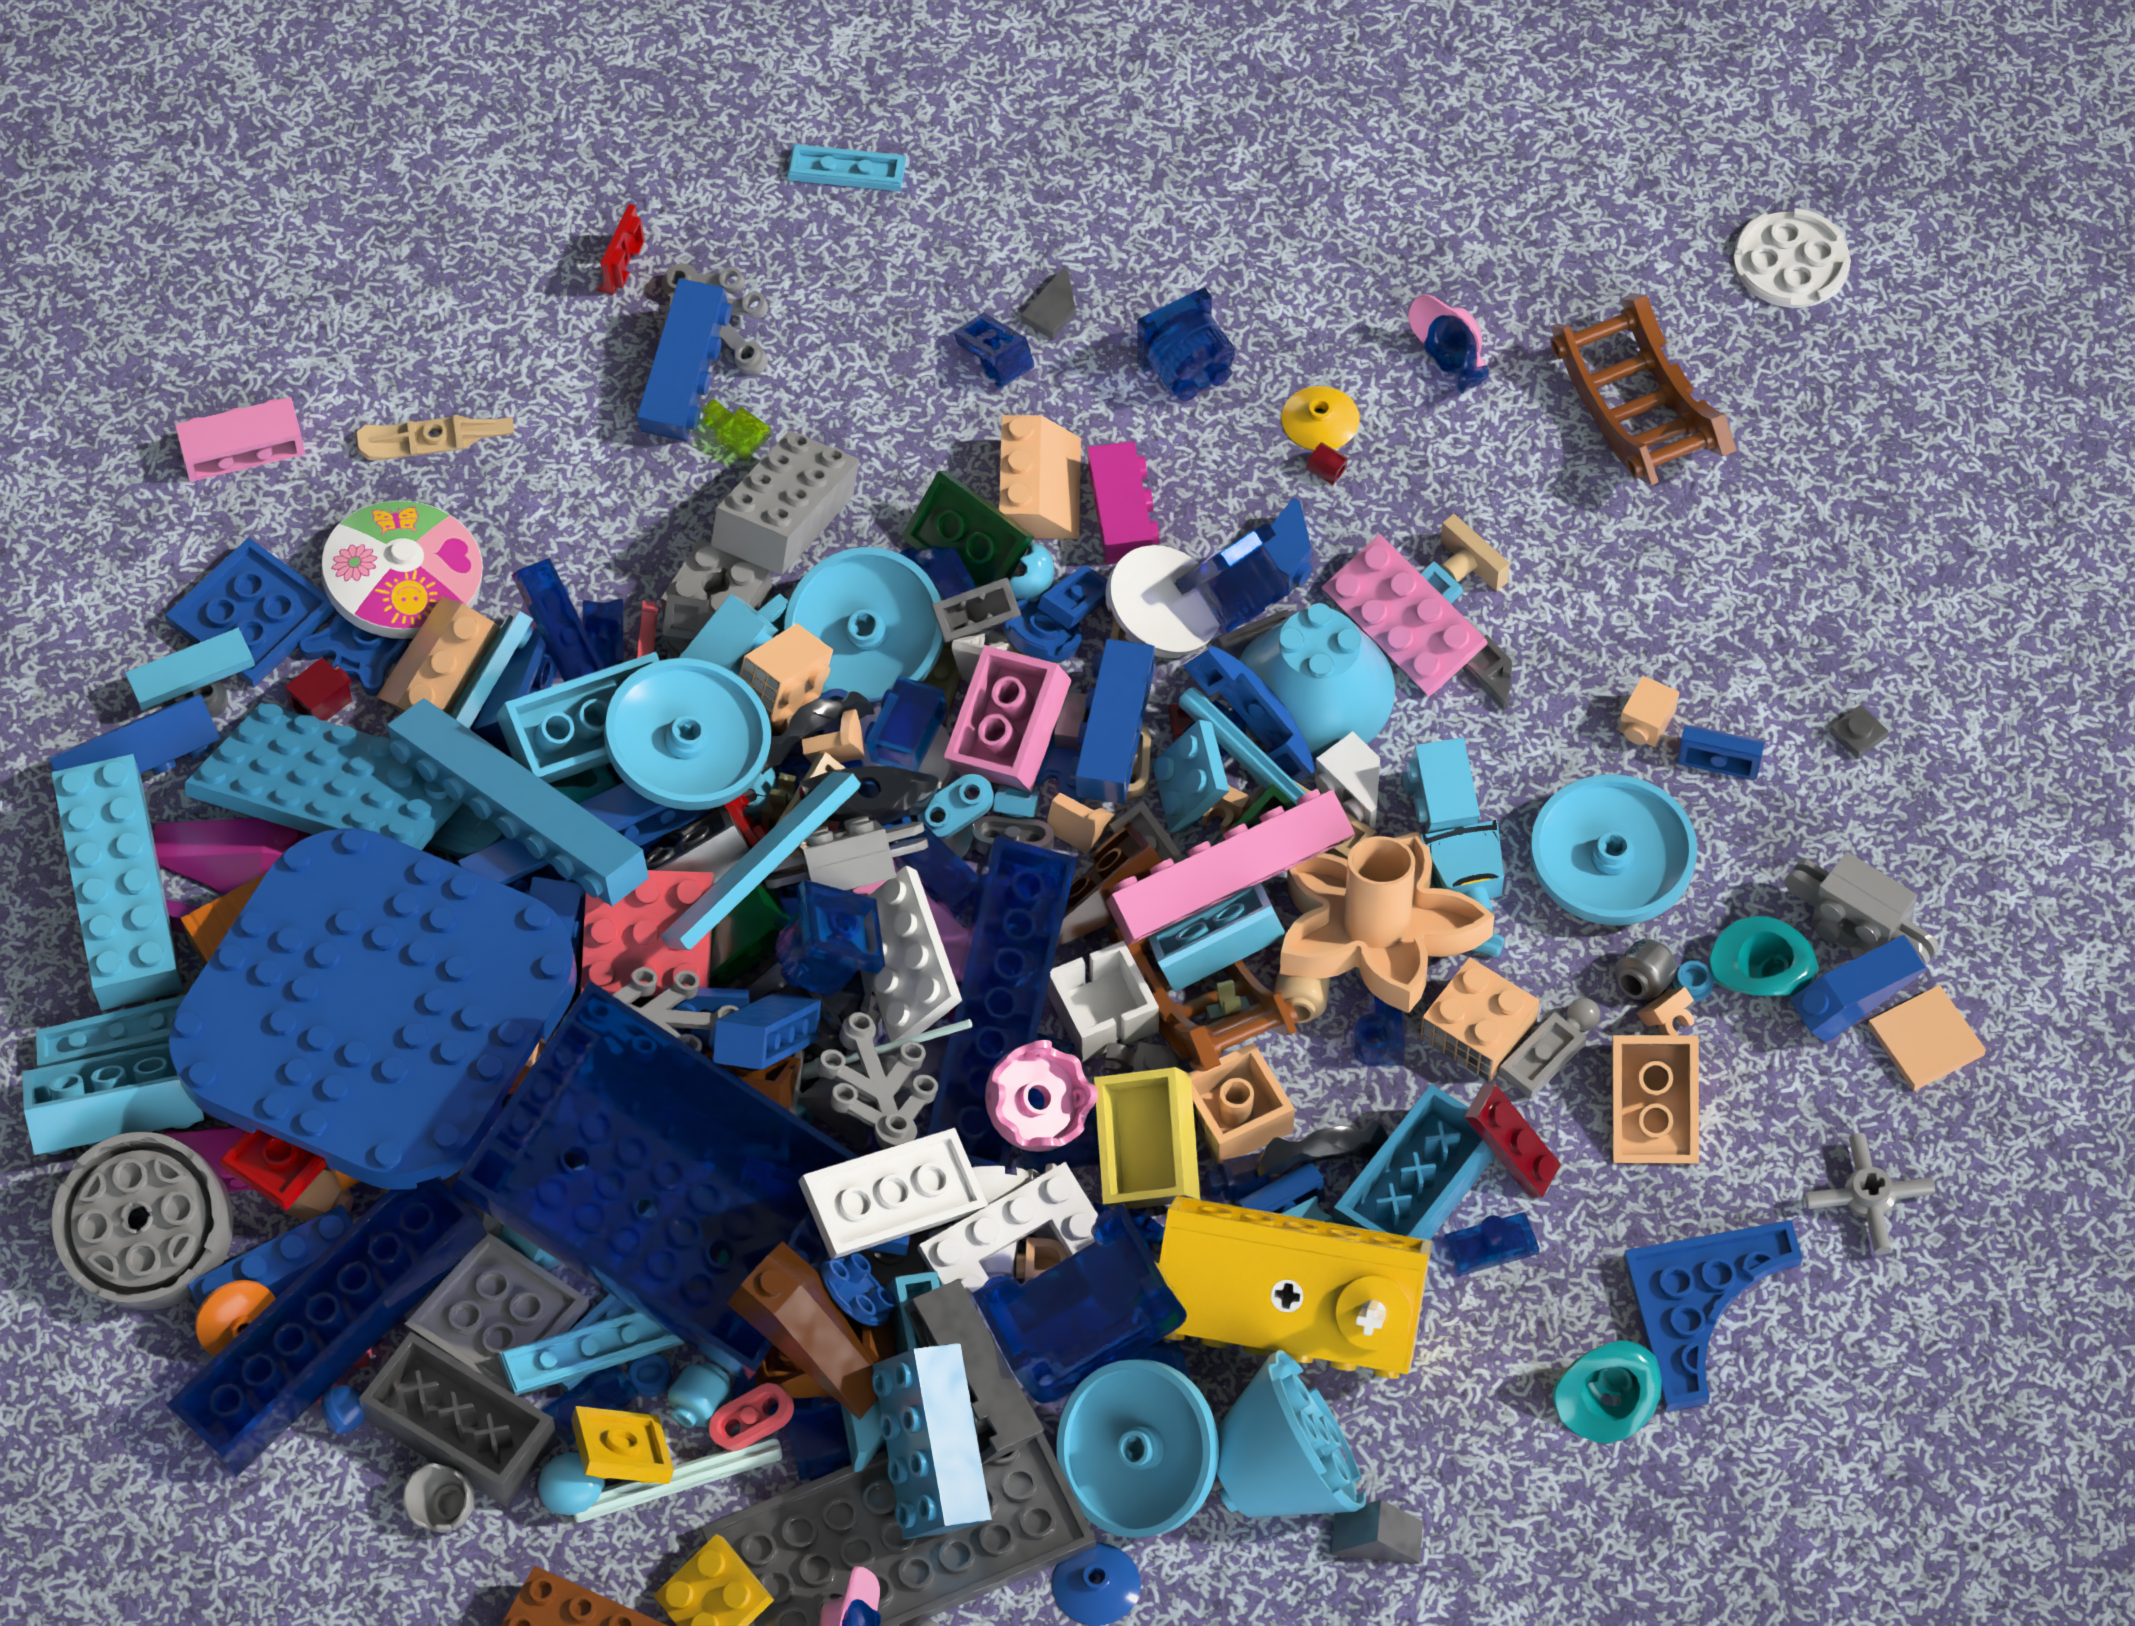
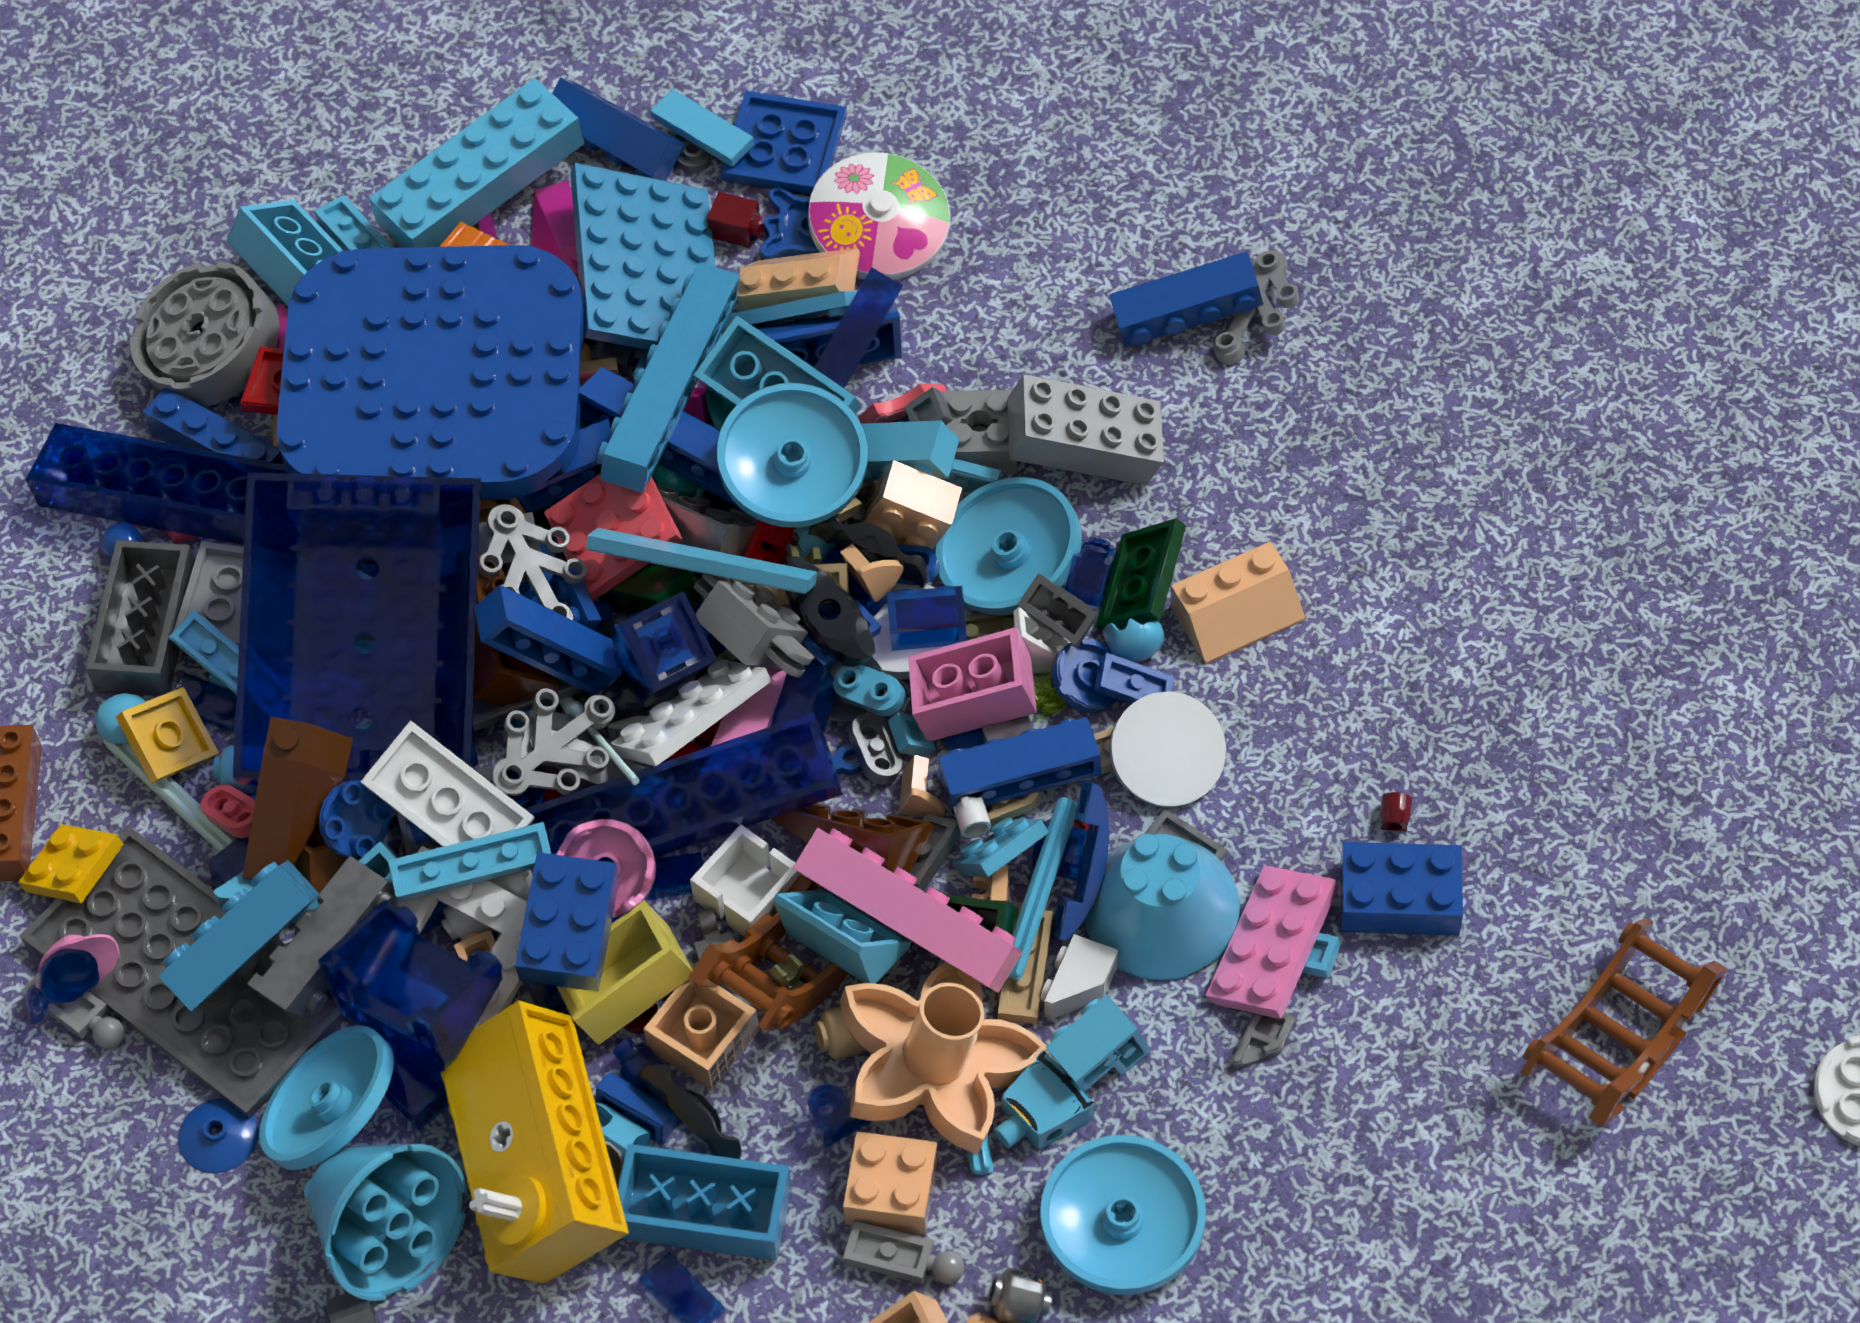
camera: 65 degrees right, 0 degrees up
(228, 1309) = (157, 423): orange dish -> none
(240, 439) = (933, 57): bright pink brick -> none
(412, 438) = (1007, 164): tan piece -> none
(436, 1486) = (68, 634): light grey hair -> none
(606, 629) = (896, 373): clear blue hips -> none
(625, 242) = (1249, 209): red piece -> none
(738, 431) = (1151, 374): clear neon green plate -> none
(847, 167) = (1465, 325): medium azure tile -> none
(972, 1202) = (468, 862): none -> medium azure plate
(1000, 349) = (1346, 512): clear blue plate -> none
(1052, 307) = (1425, 535): flat silver tile -> none
(1092, 1141) = (567, 922): none -> blue brick
(1121, 499) = (1252, 673): dark pink brick -> none
(1144, 784) = (972, 817): none -> white hose
(1185, 345) = (1433, 644): clear blue piece -> none
(1238, 580) = (1213, 792): clear blue piece -> none
(1291, 544) = (1284, 818): blue slope -> none
(1310, 428) = (1441, 801): yellow dish -> none
(1411, 491) = (1401, 888): none -> blue brick
(1452, 333) = (1591, 842): clear blue hair -> none
(1472, 554) = (1365, 966): tan tile -> none
(1512, 1140) = (768, 1257): dark red plate -> none
(1648, 712) = (1289, 1182): light nougat brick -> none
(1720, 752) = (1287, 1262): blue brick -> none

